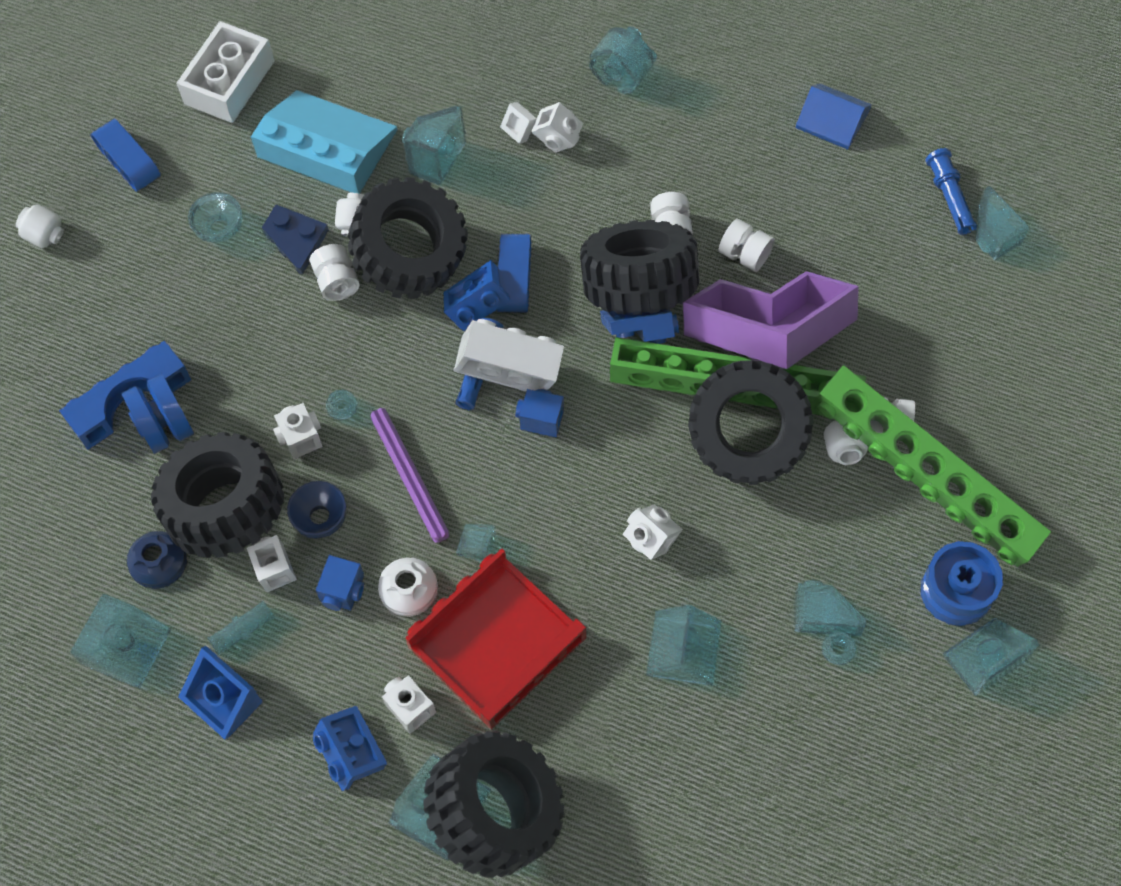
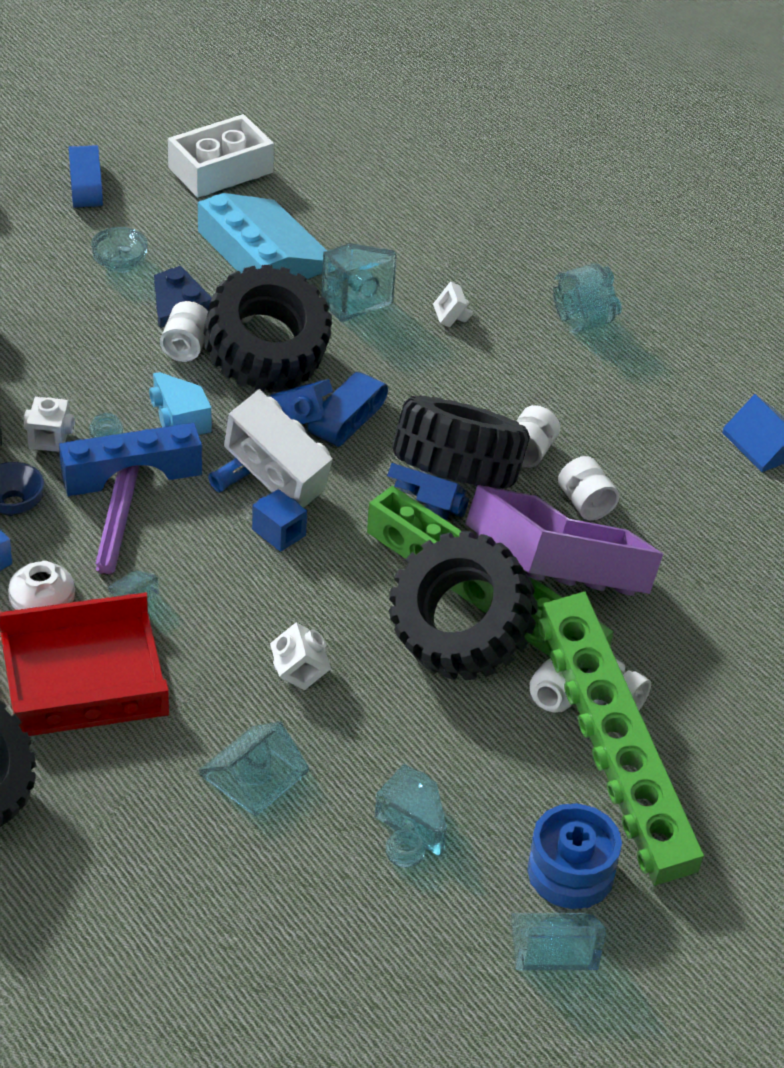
camera: 25 degrees right, 20 degrees down
(363, 445) = (92, 461): none -> blue arch
(385, 347) = (180, 403): none -> medium azure slope
(557, 127) = (482, 322): white brick -> none

